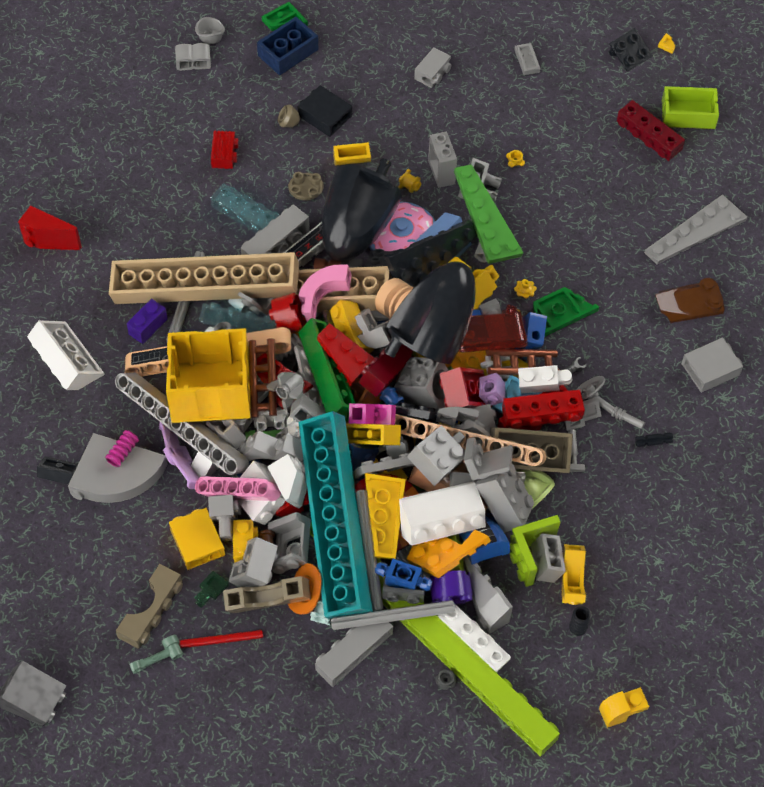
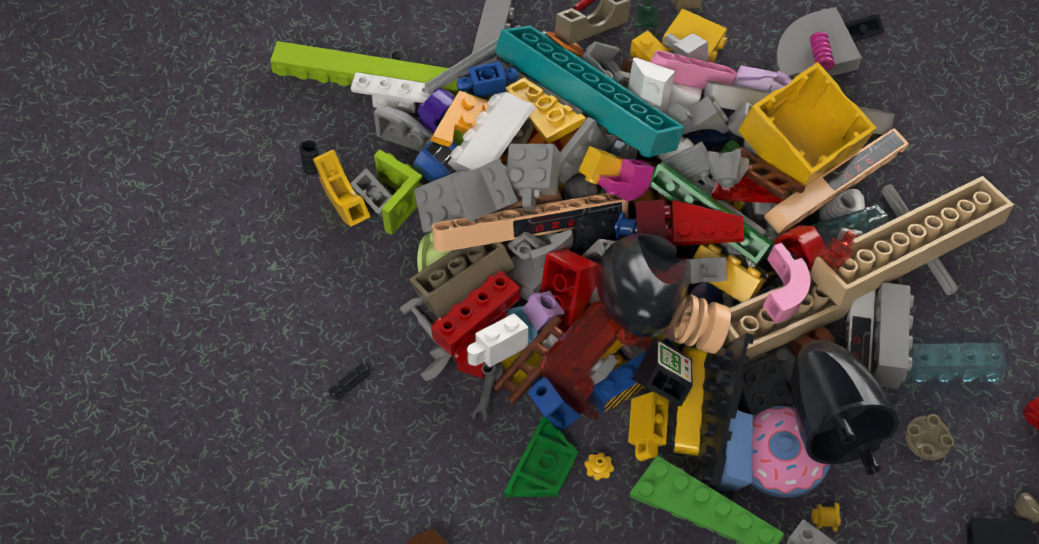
camera: 145 degrees right, 0 degrees up
(64, 354) = (961, 116): white slope -> none
(147, 321) = (924, 182): dark purple brick -> none
(256, 564) = (621, 29): light grey brick -> none
(275, 278) = (837, 251): none -> clear red plate
(352, 154) = (916, 503): yellow brick -> none
(591, 390) = (442, 385): light grey dish -> none
(621, 705) = (227, 112): yellow brick -> none
(712, 364) = (335, 503): light grey brick -> none

